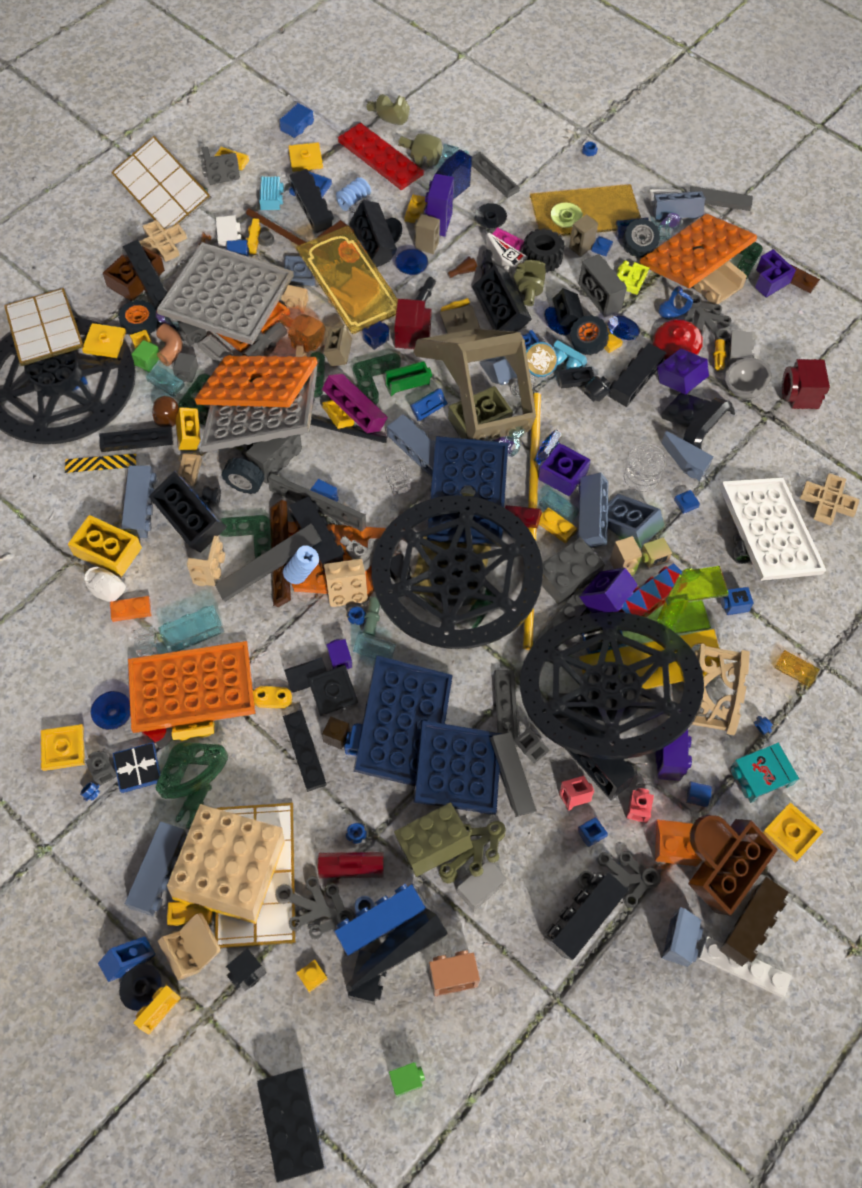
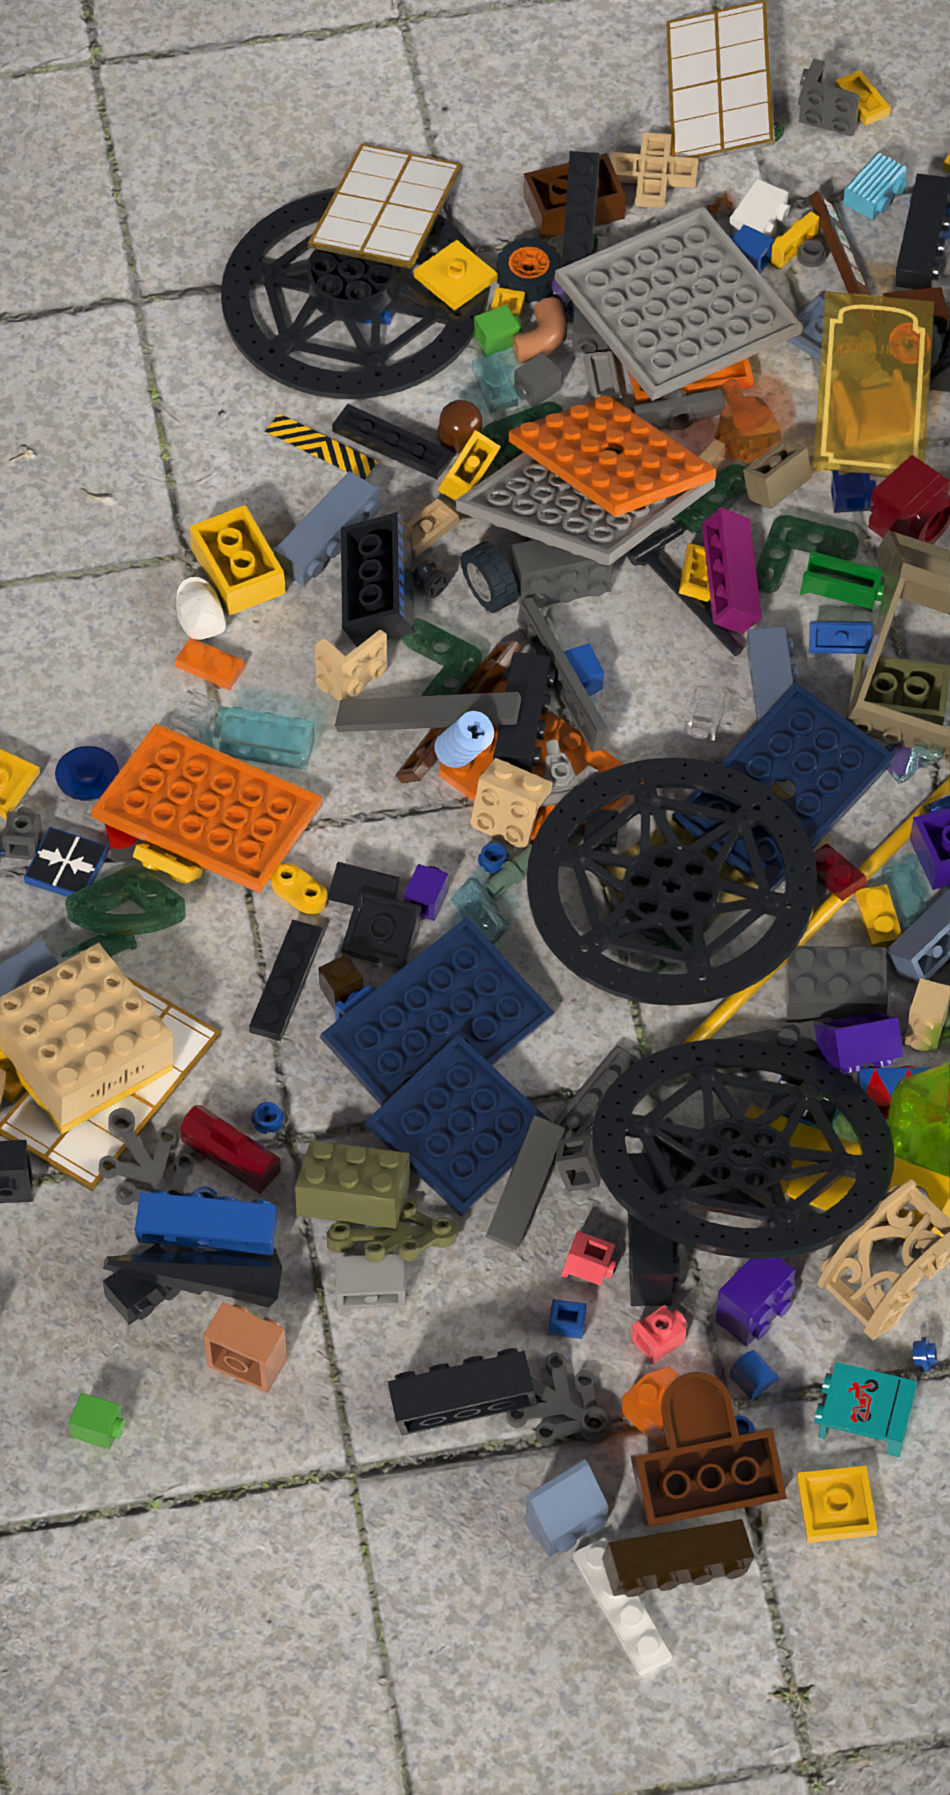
camera: 40 degrees right, 5 degrees down
(295, 297) = (779, 368): tan brick -> none
(312, 976) = (81, 1239): yellow plate -> none

